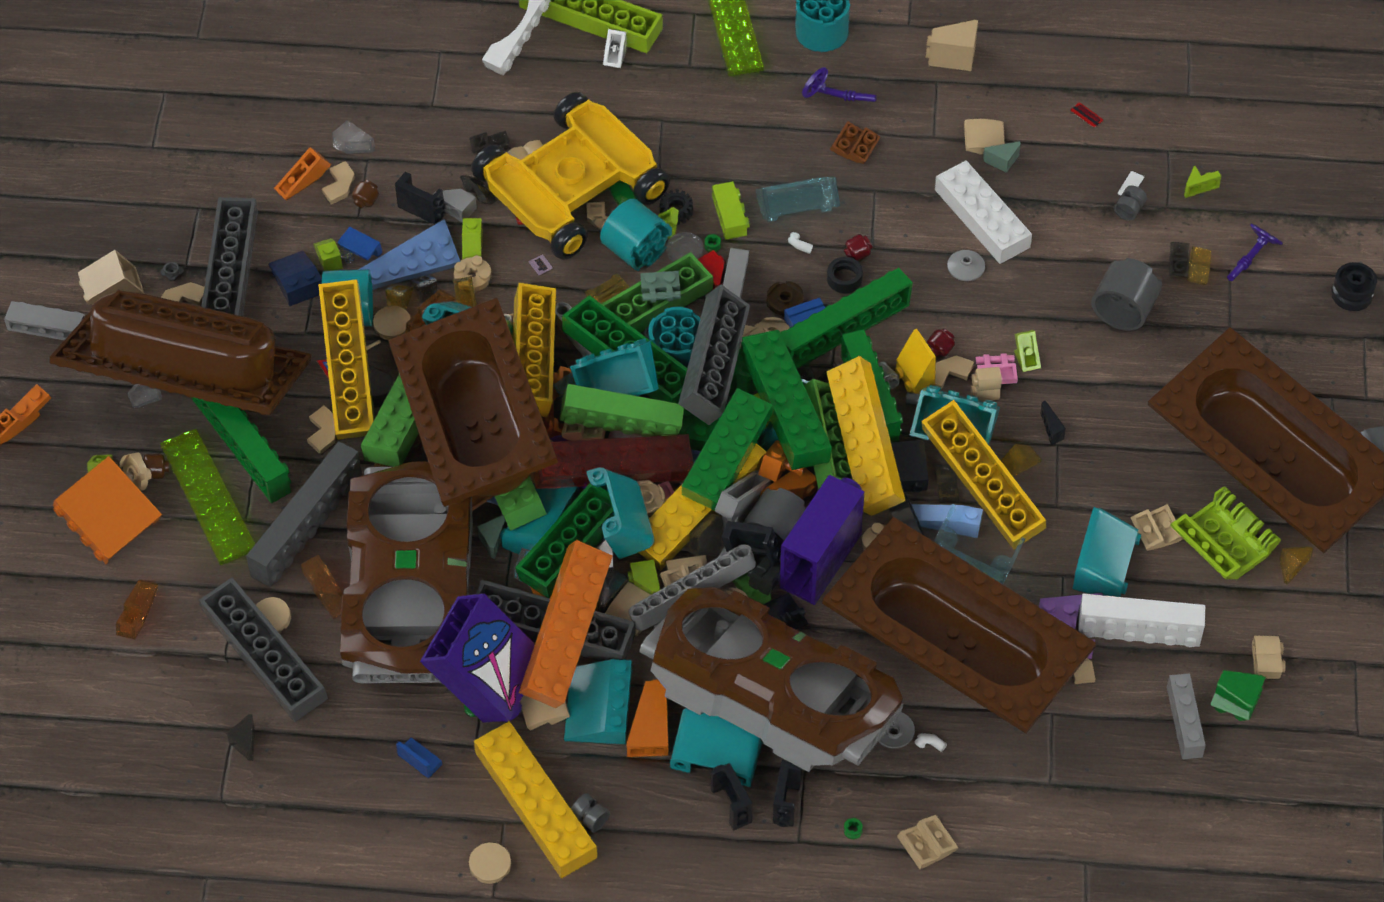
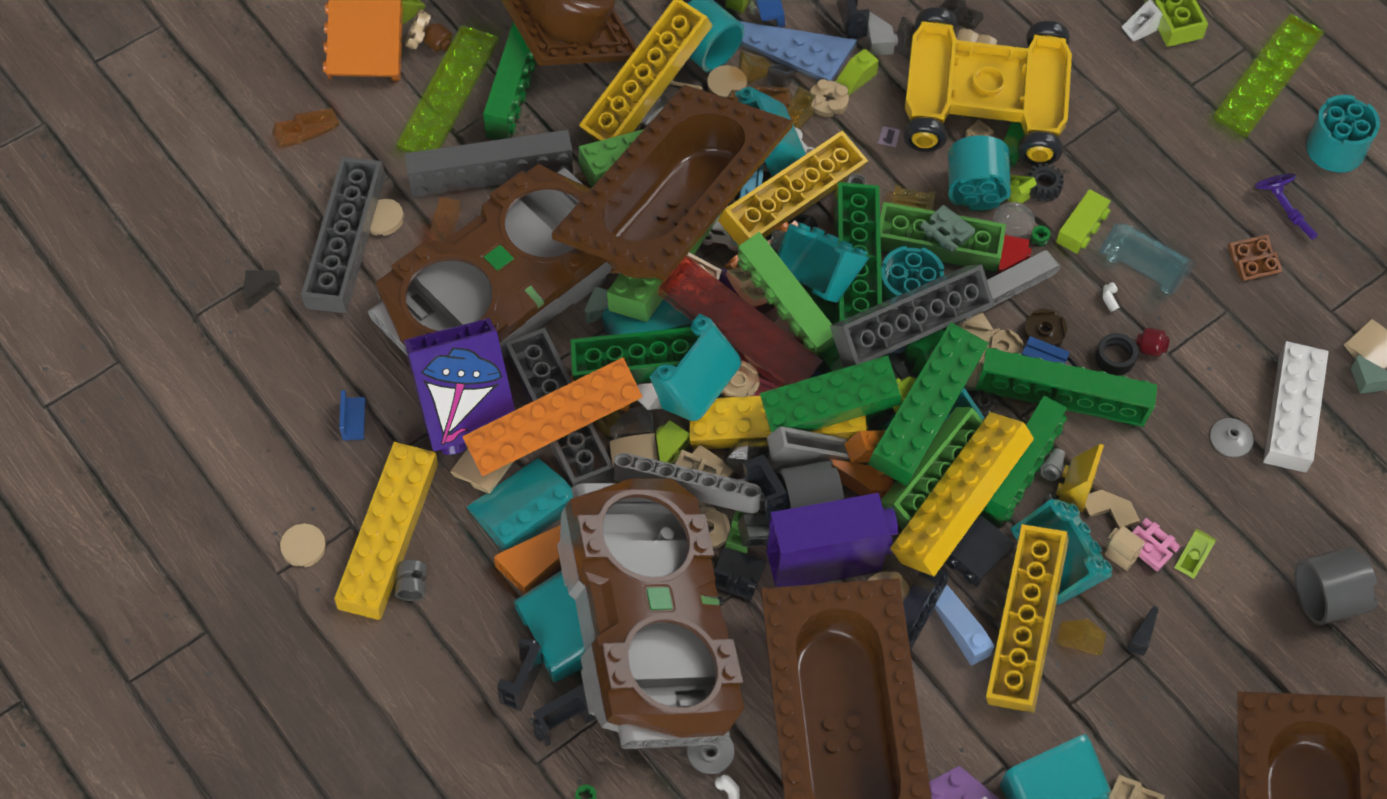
camera: 45 degrees right, 5 degrees up
(326, 435) = (572, 121): tan tile -> none
(941, 342) = (1129, 479): dark red head -> none
(1001, 564) = (931, 688): clear light blue windscreen -> none

